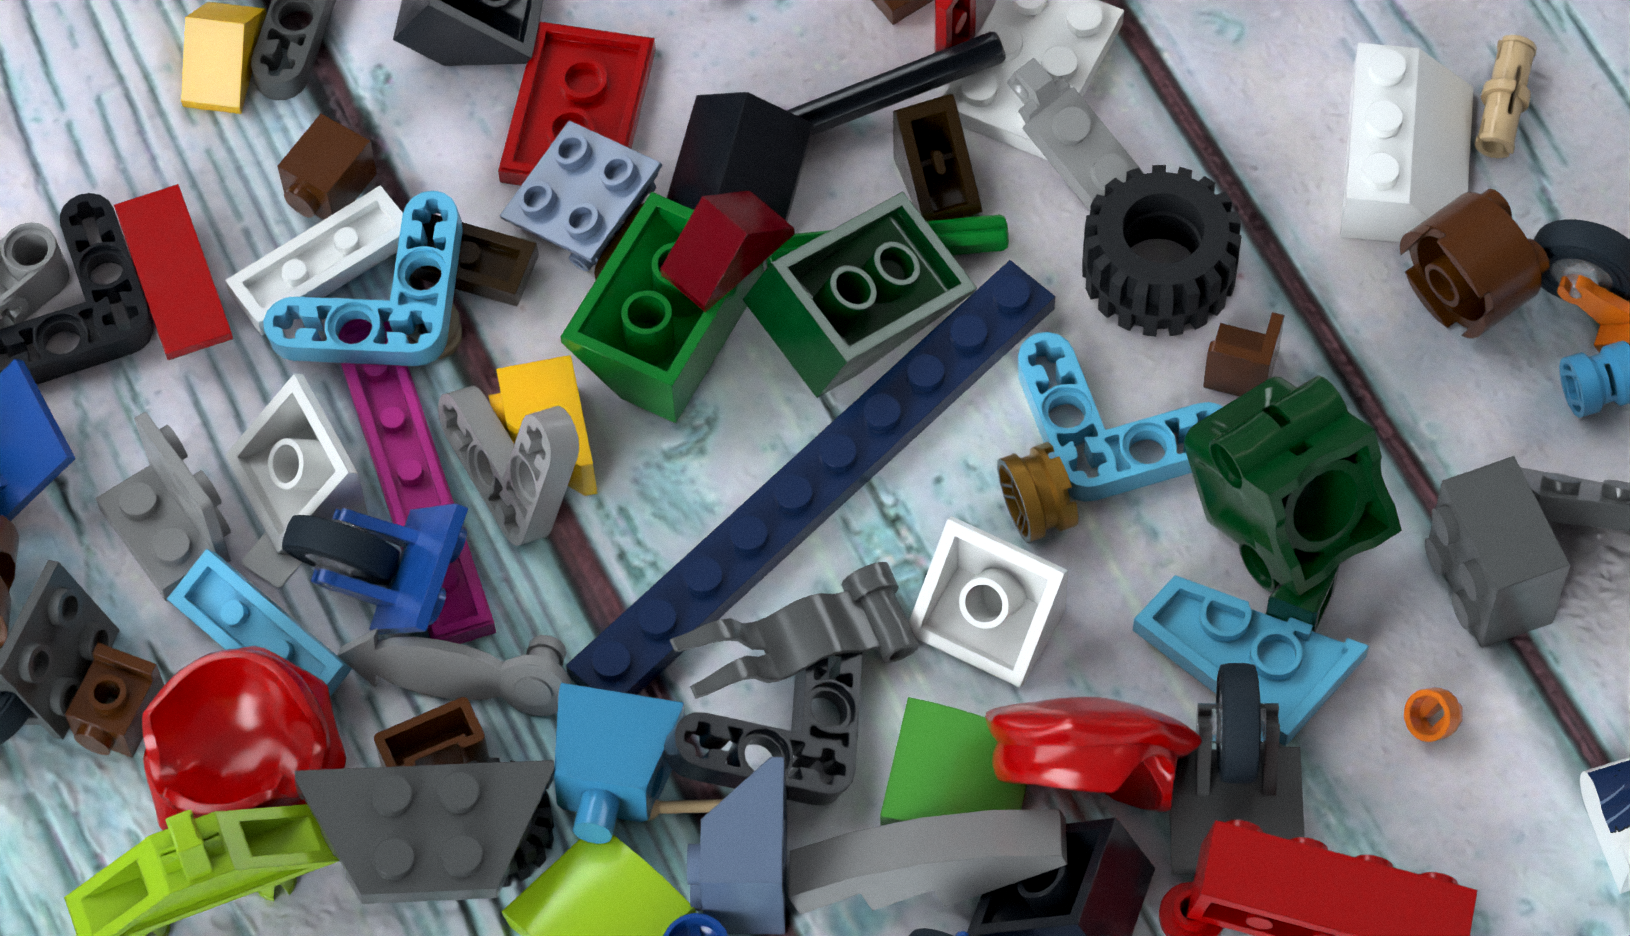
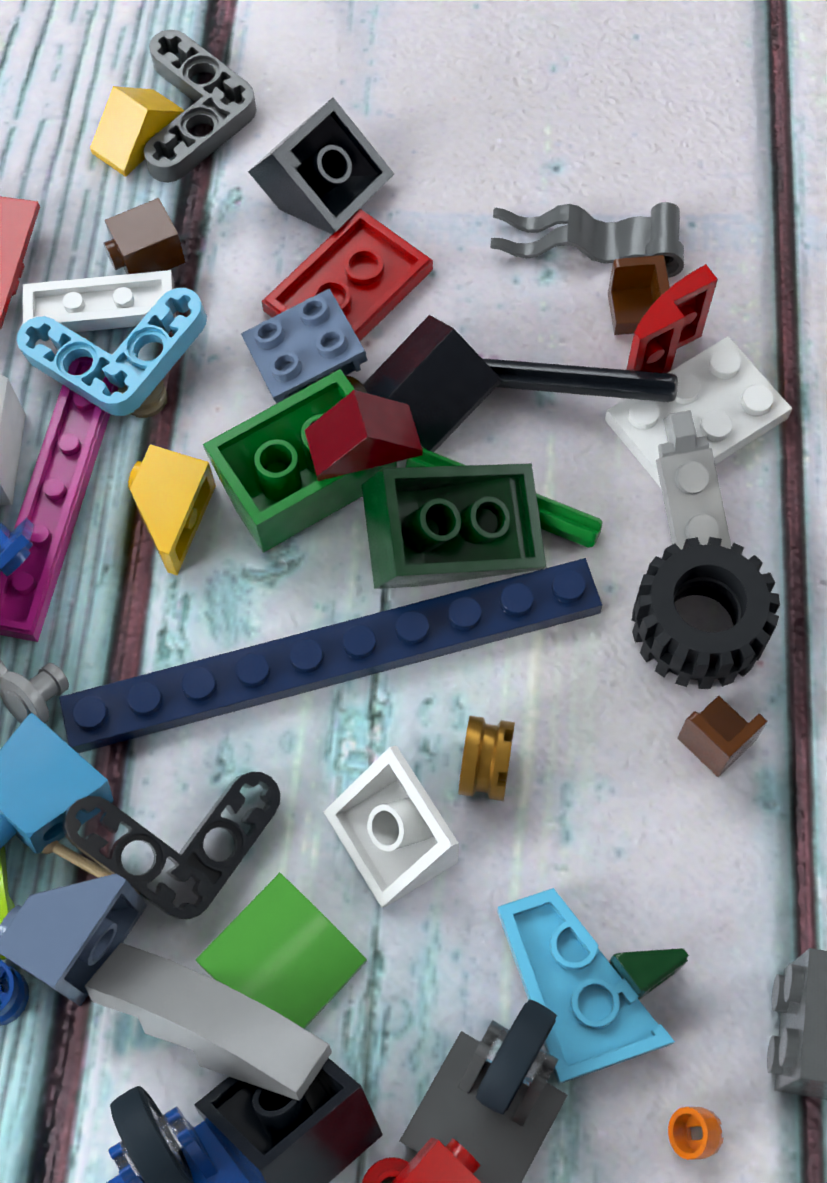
camera: 30 degrees right, 5 degrees up
(488, 263) = (210, 365): dark brown plate -> none
(518, 480) = (114, 518): light grey beam -> none
(810, 631) = (239, 776): dark grey flag -> none
(935, 159) = (574, 452): dark brown slope -> none
(1091, 748) = (378, 1006): red piece -> none
(1102, 448) = (575, 749): medium azure beam -> none
(1292, 481) = (687, 871): dark green piece -> none

